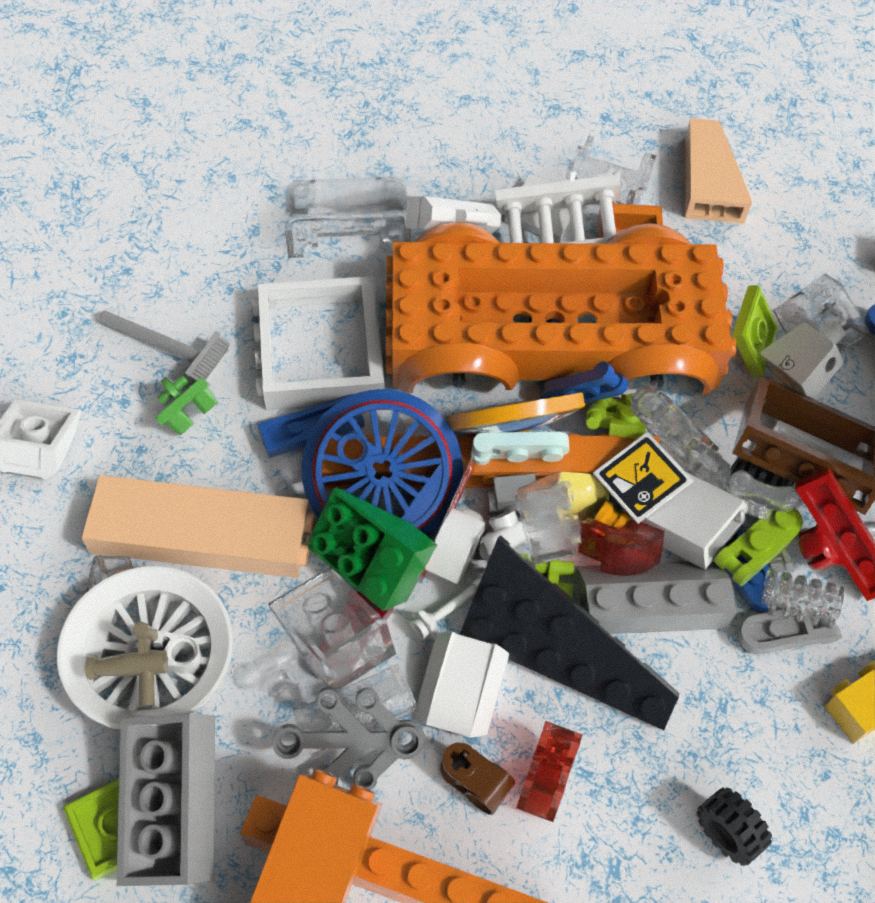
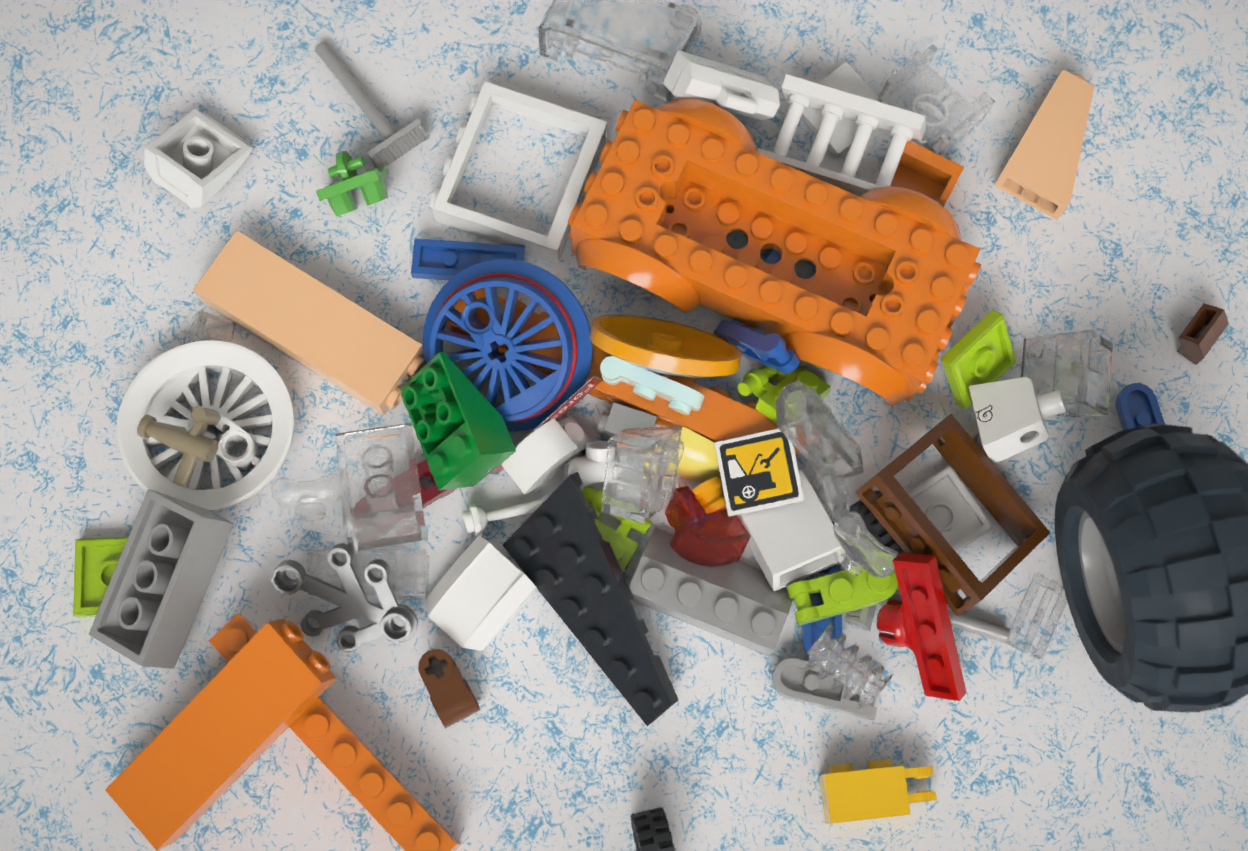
camera: 25 degrees right, 15 degrees up
(549, 771) = (513, 716): clear red brick -> none

